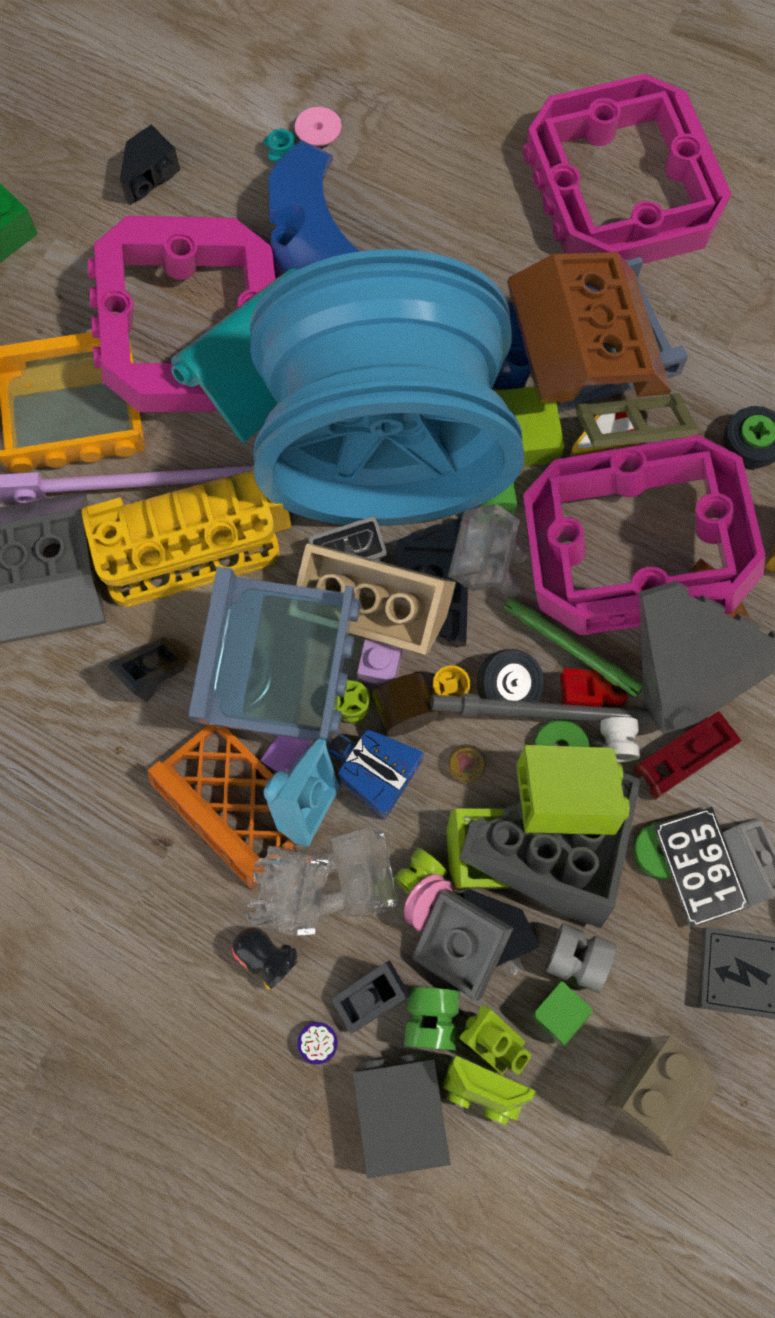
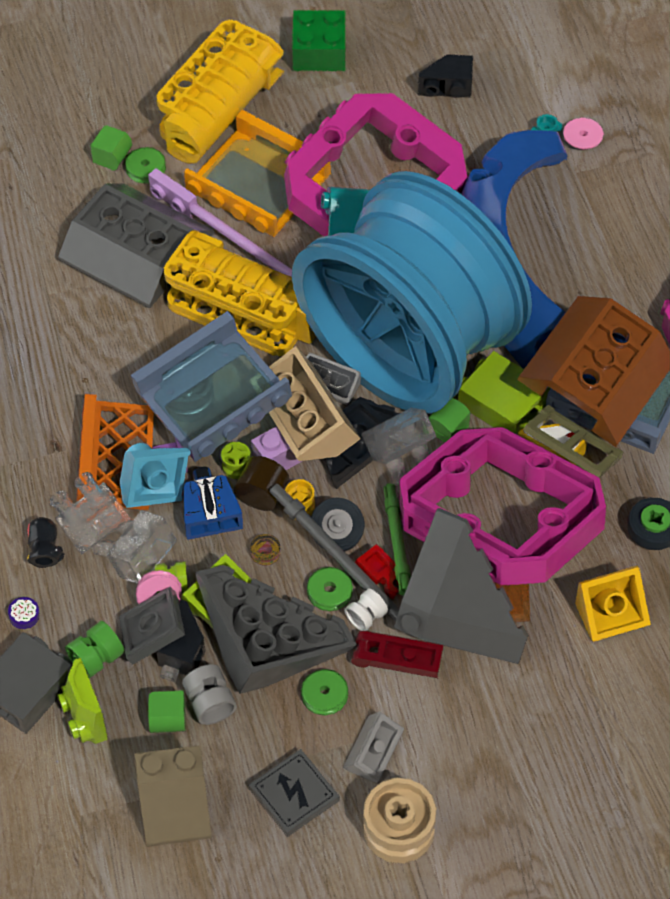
camera: 45 degrees right, 15 degrees down
(148, 667) = (141, 344): black slope -> none
(370, 997) = (76, 609): black slope -> none
(495, 1042) = (114, 688): lime hips -> none
(571, 790) = (300, 600): lime brick -> none
(701, 867) = (336, 719): black sticker -> none

